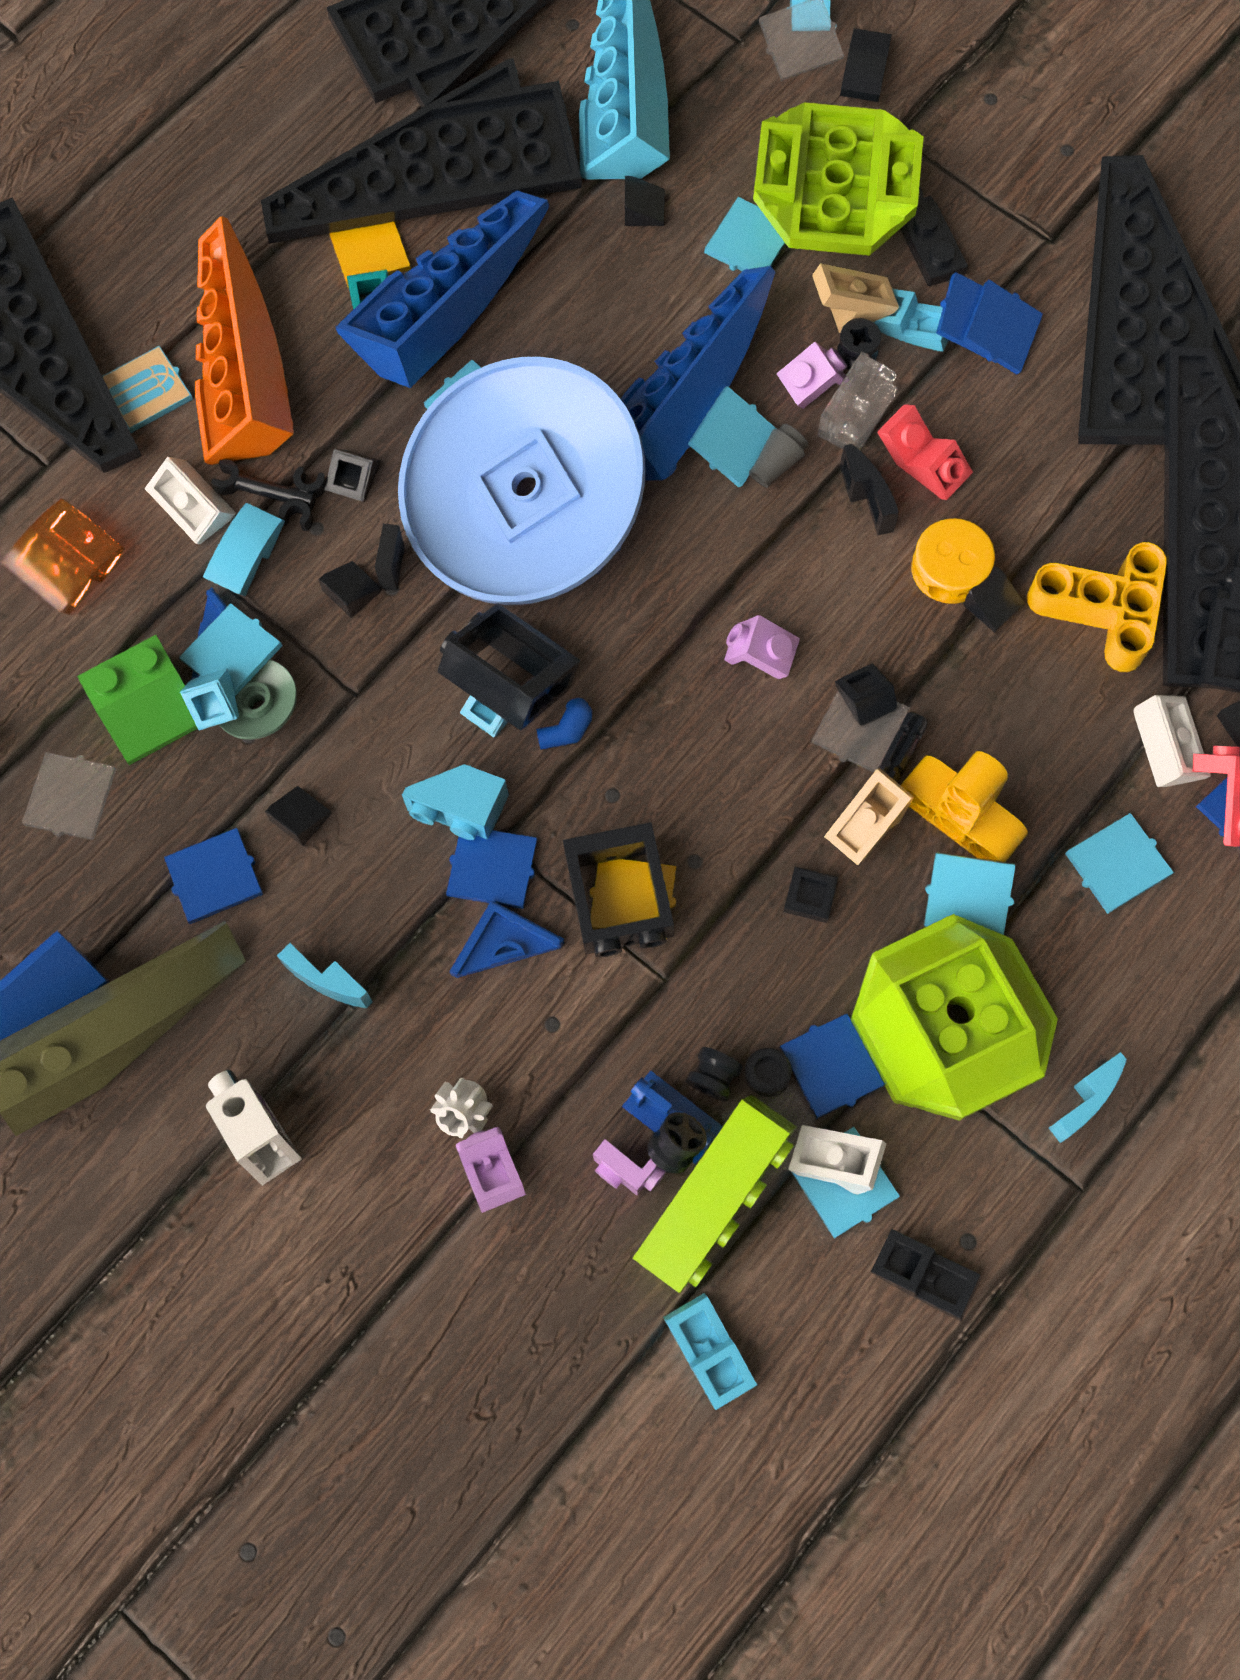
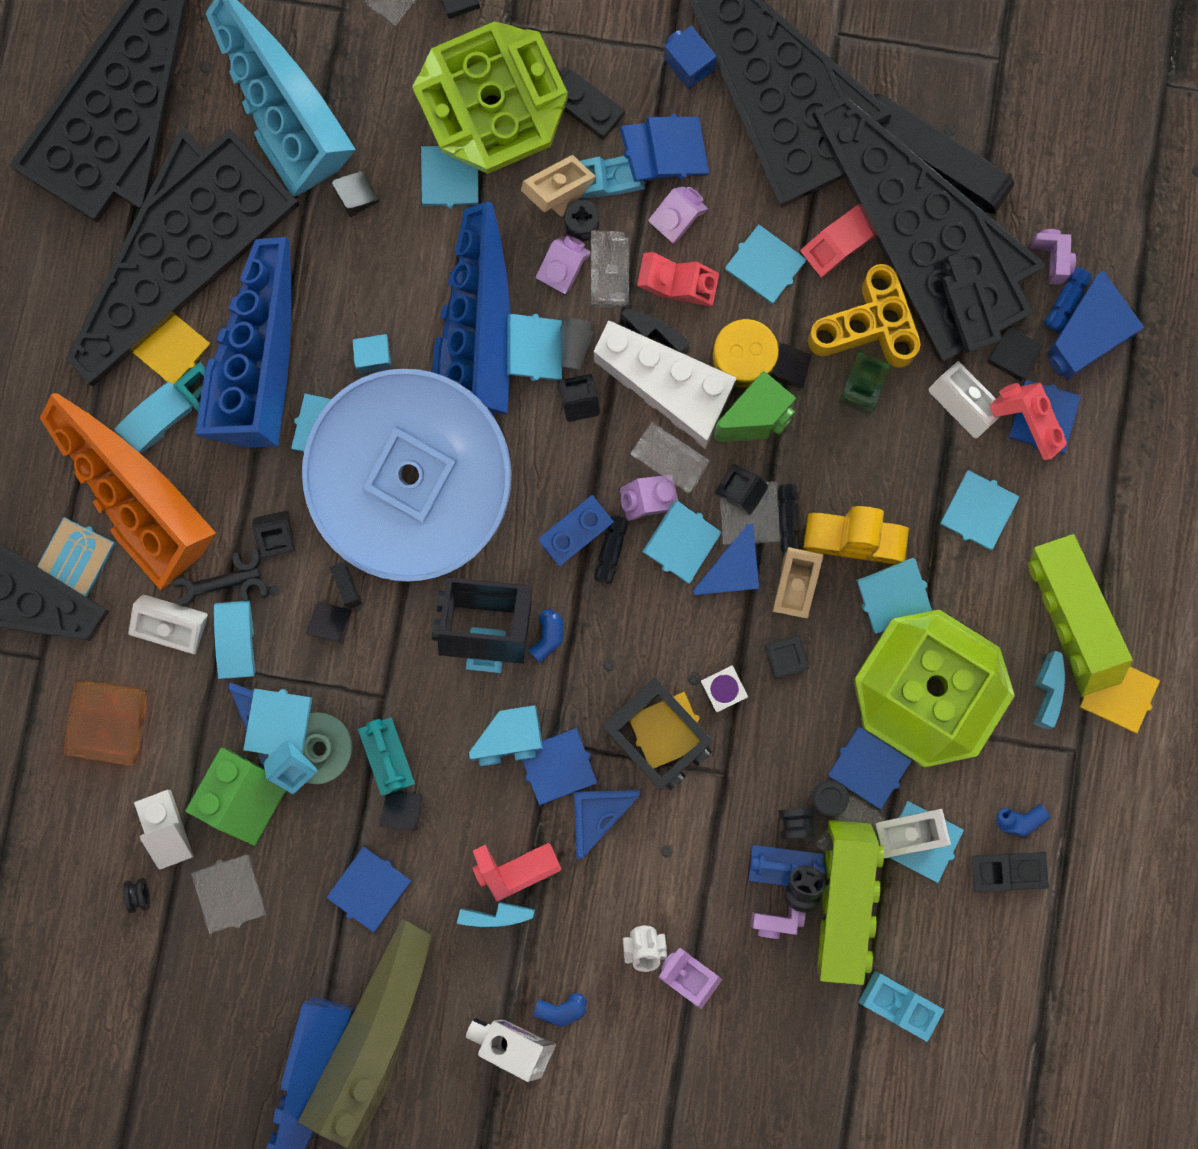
camera: 30 degrees left, 10 degrees up
(47, 693) = (163, 830): none -> white slope
(298, 300) = (153, 417): none -> medium azure slope
(320, 749) = (386, 756): none -> teal hinge
(330, 1128) = (564, 1013): none -> blue arm
(369, 948) = (517, 873): none -> coral bracket
(565, 351) = (372, 354): none -> medium azure slope
(661, 632) = (575, 530): none -> blue hinge
(688, 677) = (611, 550): none -> black axle
(721, 888) = (724, 689): none -> tile
(749, 513) = (579, 397): none -> black slope
(768, 710) = (681, 541): none -> medium azure piece
(808, 769) = (734, 568): none -> blue tile
(810, 618) = (670, 458): none -> clear hinge
(853, 540) = (666, 379): none -> white wedge
(926, 617) = (757, 413): none -> bright green slope
(964, 388) = (678, 212): none -> lavender bracket
(969, 1227) = (1021, 824): none -> blue arm
(1028, 490) = (765, 264): none -> medium azure piece
(1062, 658) = (864, 383): none -> clear green slope
(1067, 250) = (689, 56): none -> blue brick
(1121, 501) = (838, 241): none -> coral slope
(1169, 1152) = (1125, 702): none -> yellow piece
(1171, 1035) = (1080, 615): none -> lime wedge

